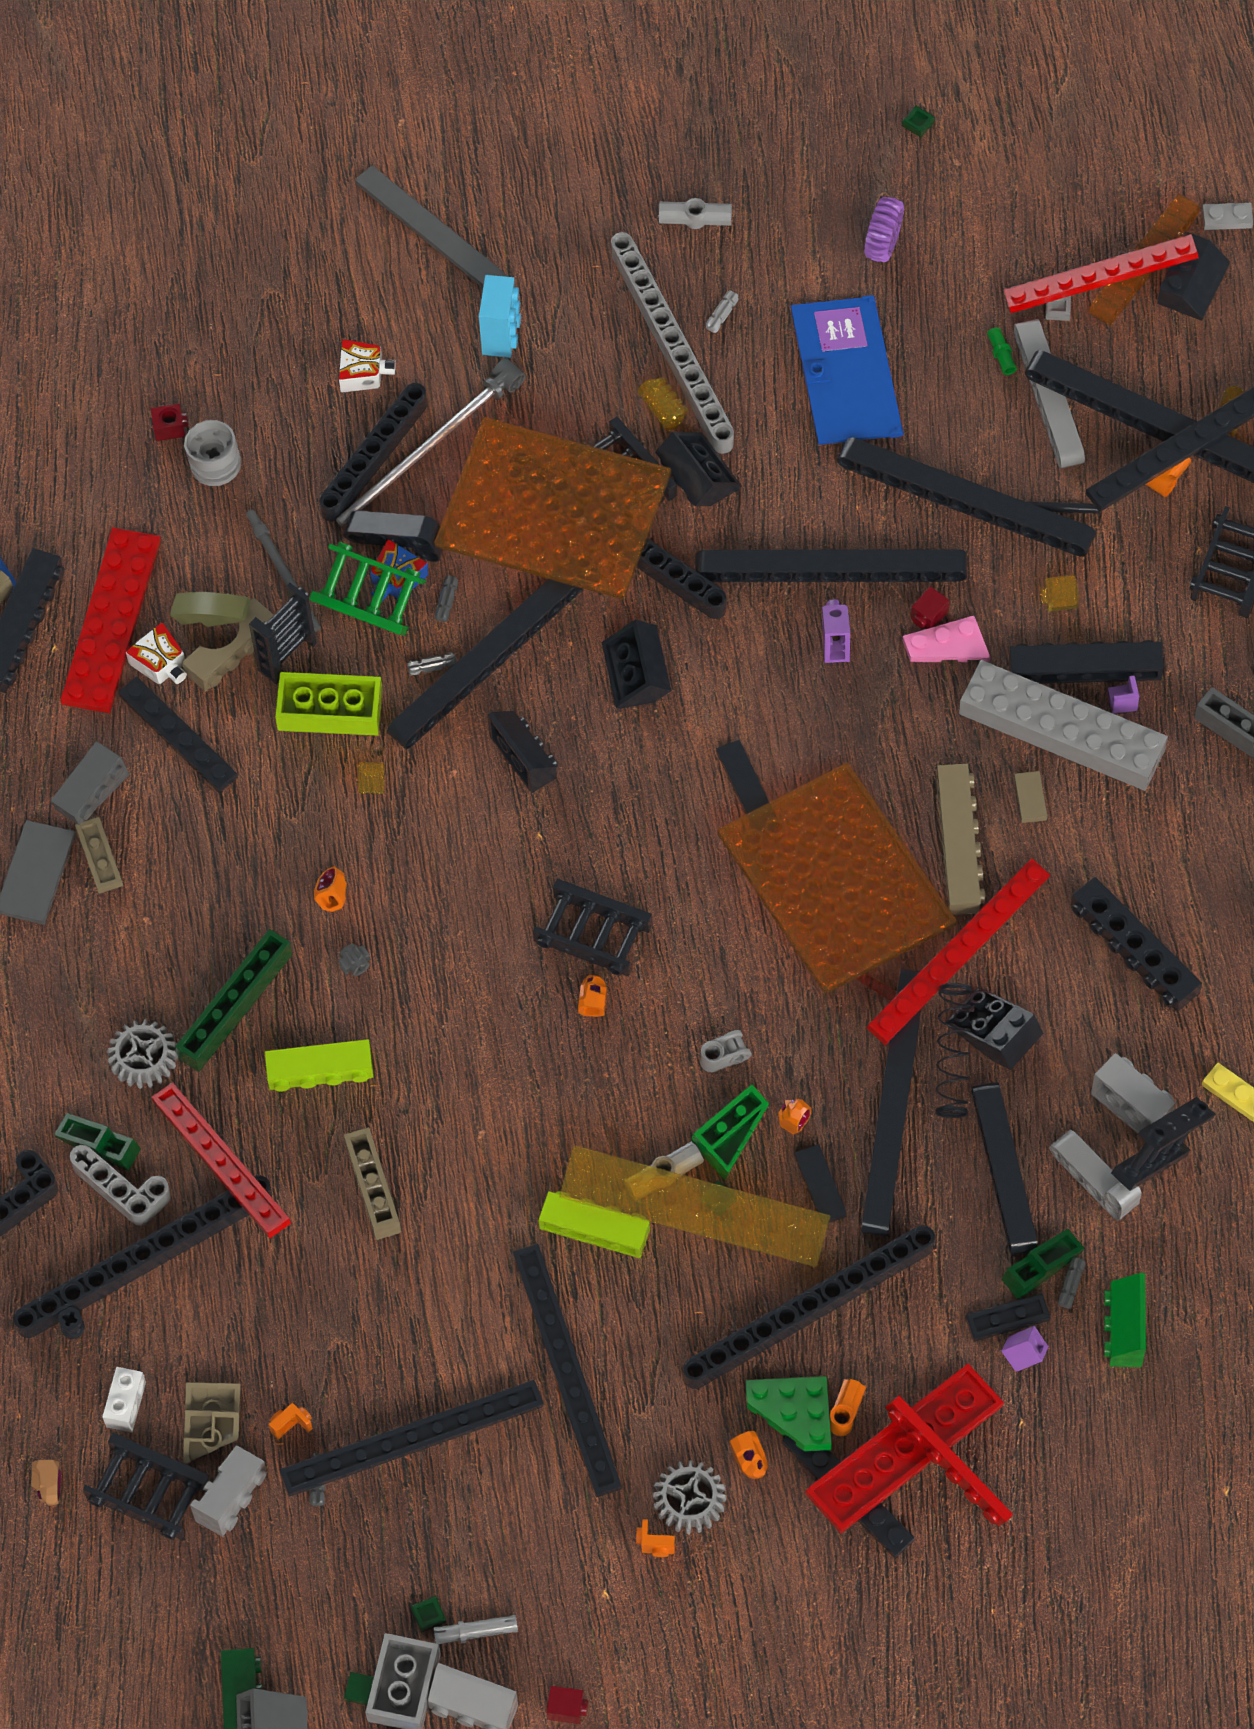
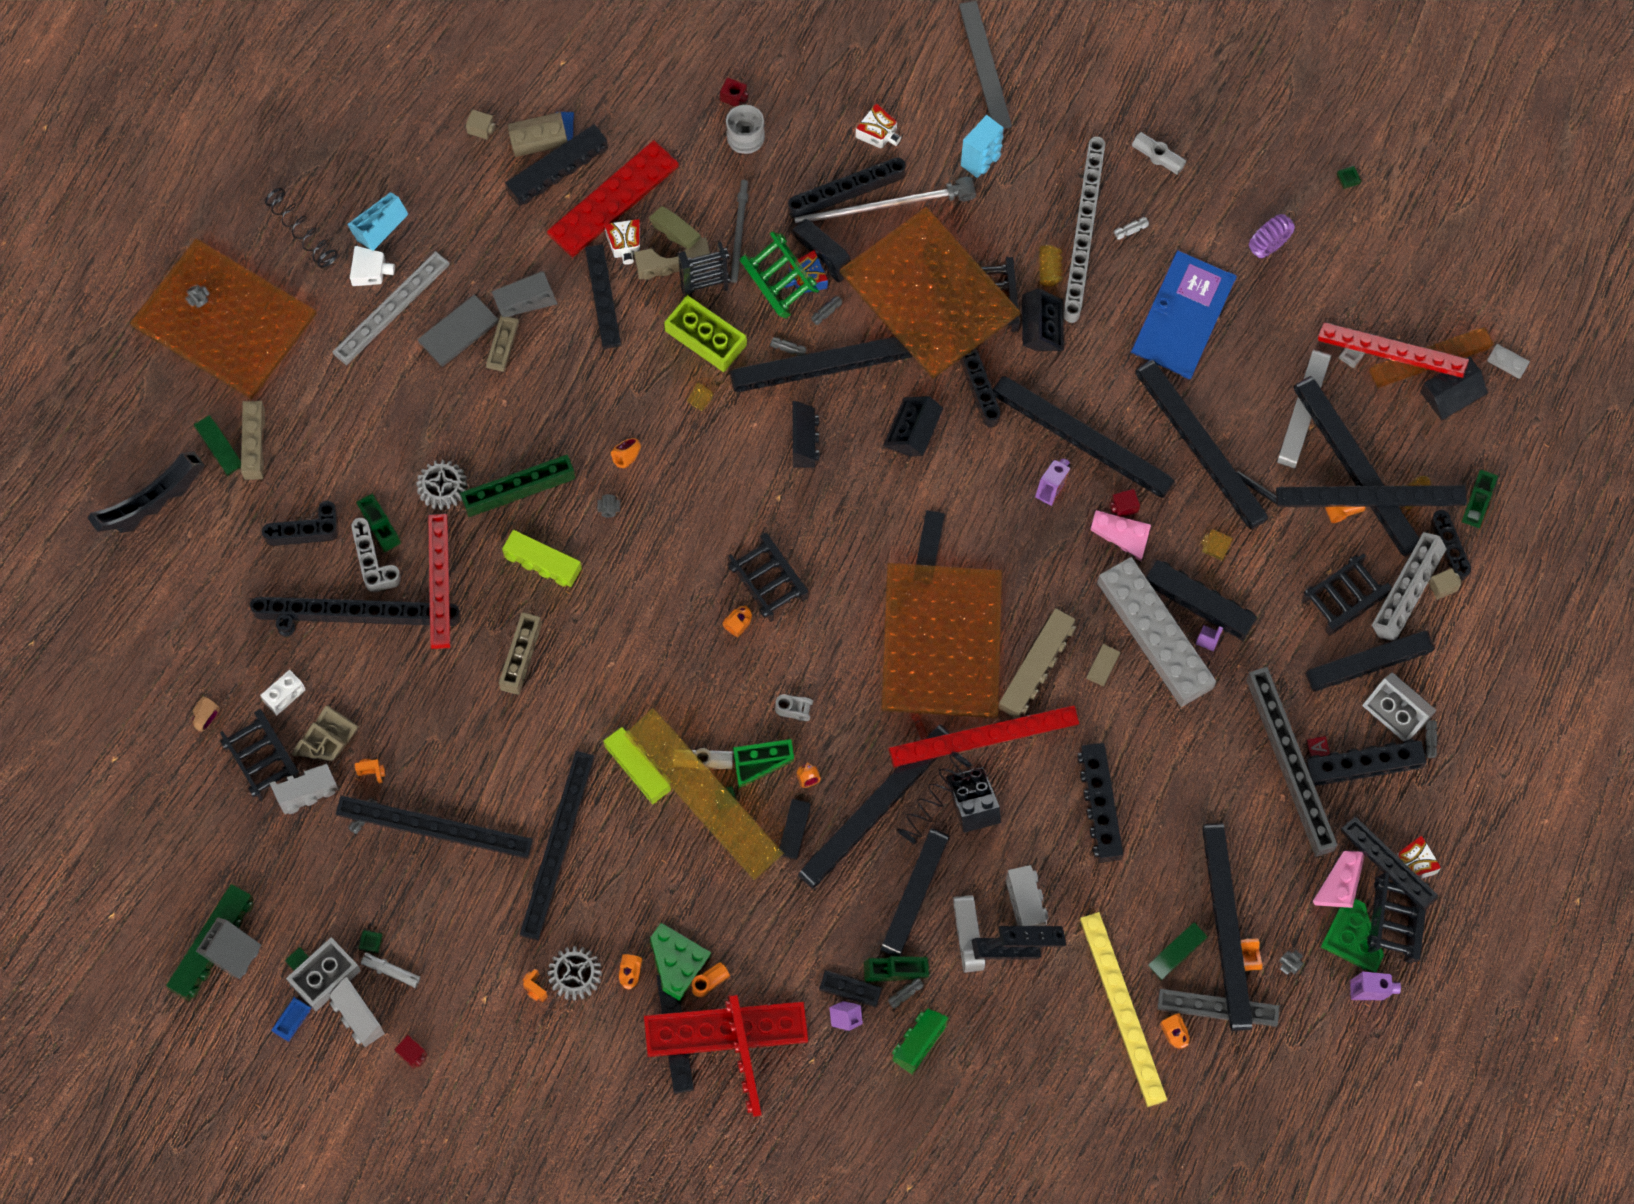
camera: 30 degrees right, 5 degrees up
(803, 1317) = (723, 896): black beam -> none
(1001, 351) = (1293, 362): green pin -> none

